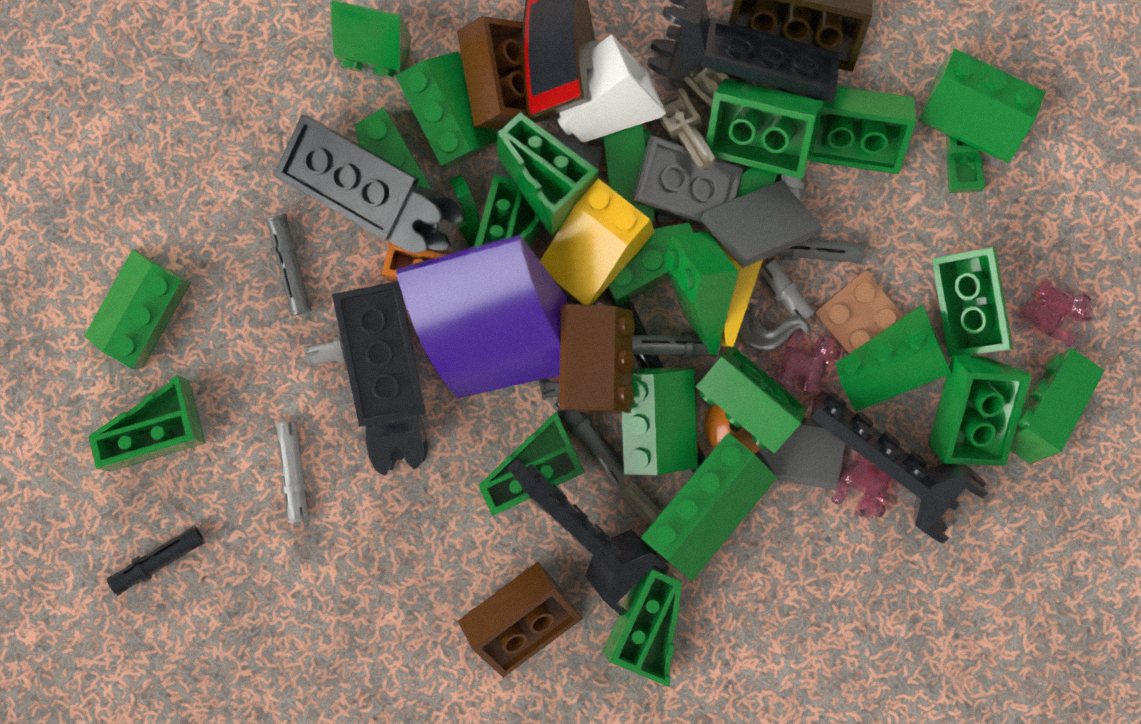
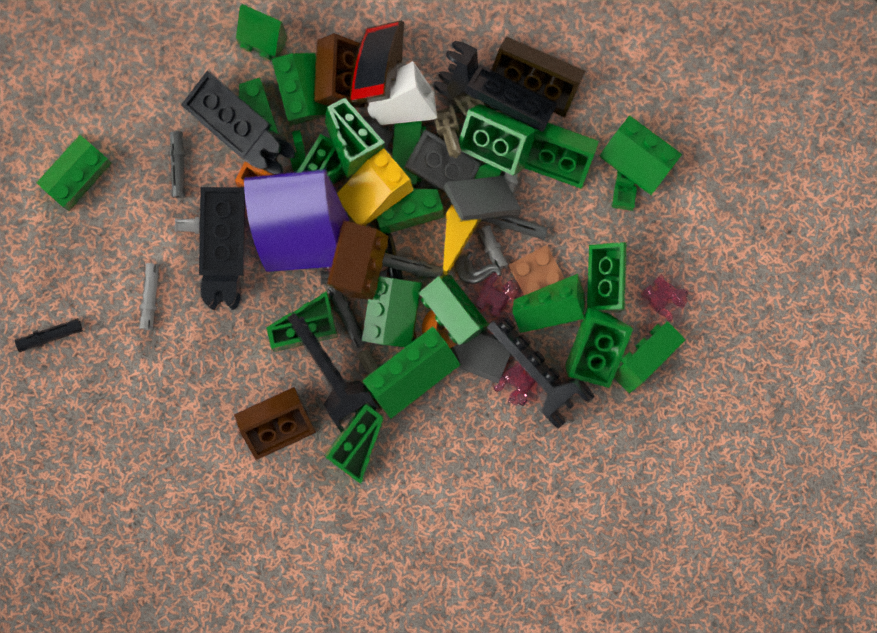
camera: 20 degrees right, 5 degrees down
(152, 429) = (65, 250): green wedge -> none
(702, 283) = (436, 227): green slope -> none

